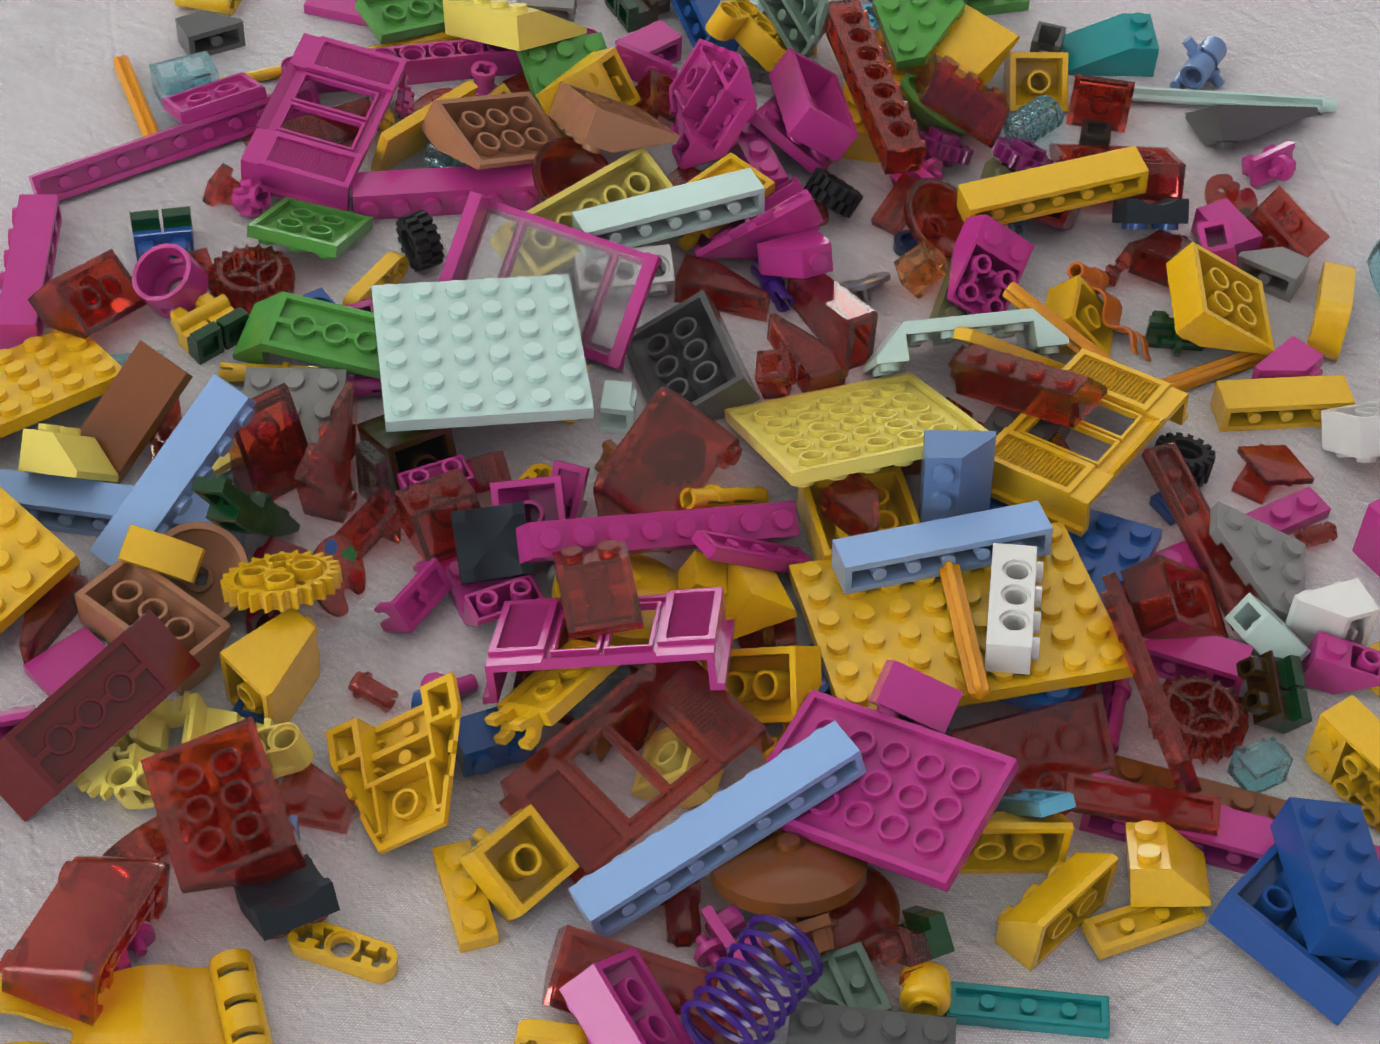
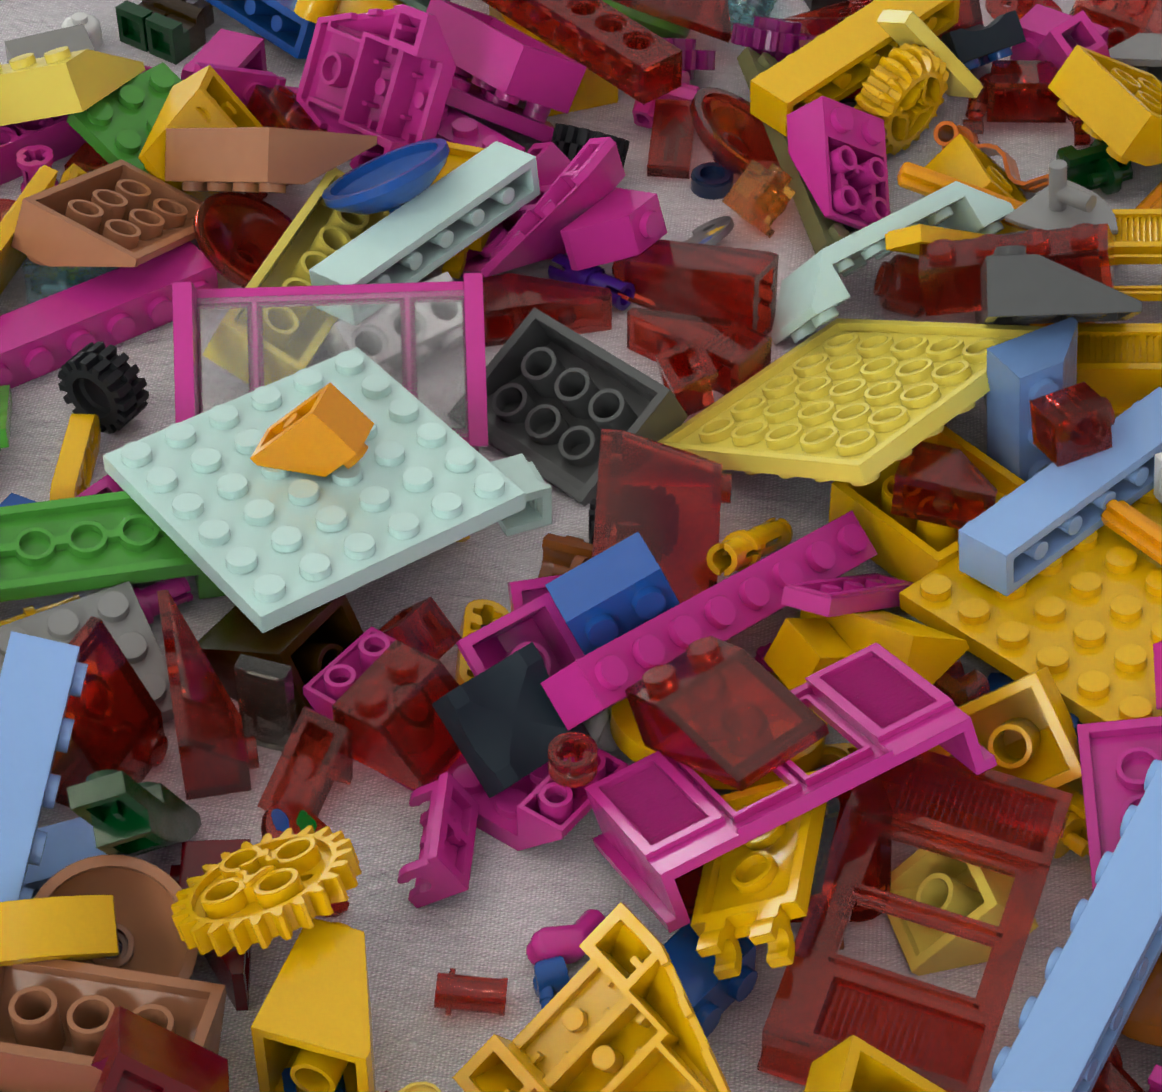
camera: 25 degrees left, 5 degrees down
(488, 323) = (316, 436): none -> light orange slope
(510, 572) = (572, 773): none -> clear red bush
(595, 491) = (612, 593): none -> blue slope
(663, 168) = (388, 179): none -> blue dish
(951, 501) = (1071, 423): none -> clear red brick
(998, 406) = (1040, 291): none -> dark grey slope
(1063, 233) = (904, 93): none -> yellow gear
(1099, 209) = (908, 28): none -> light yellow tile
(1099, 357) = (1062, 205): none -> light grey shield

